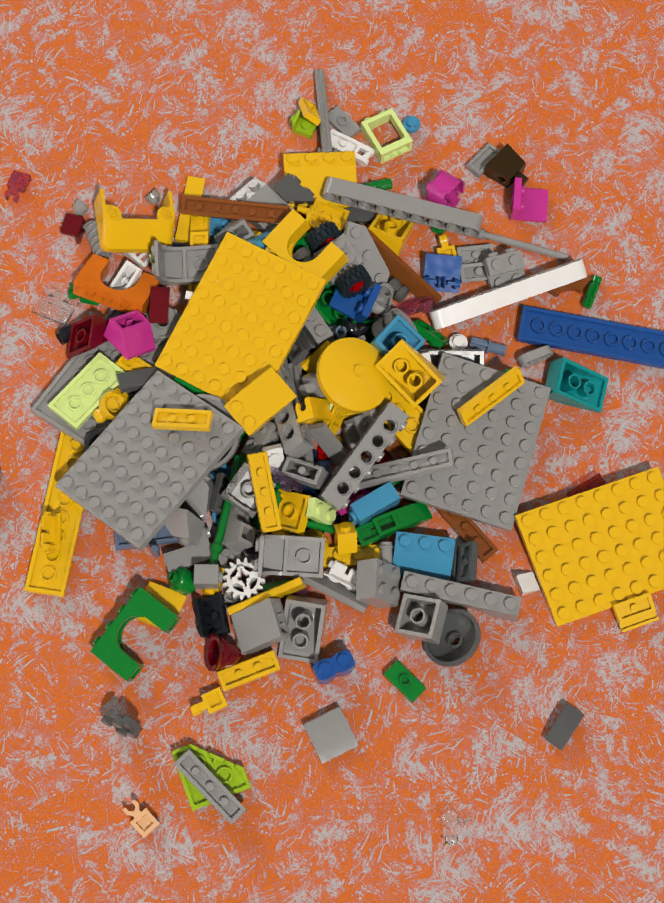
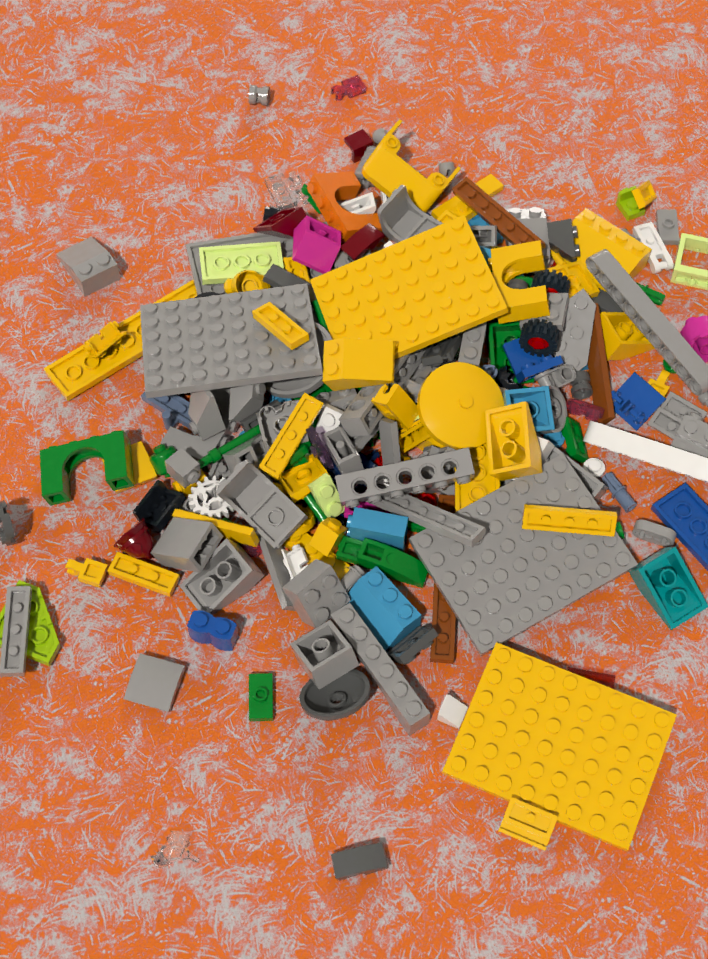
camera: 45 degrees right, 10 degrees down
(323, 110) = (674, 187): light grey axle -> none

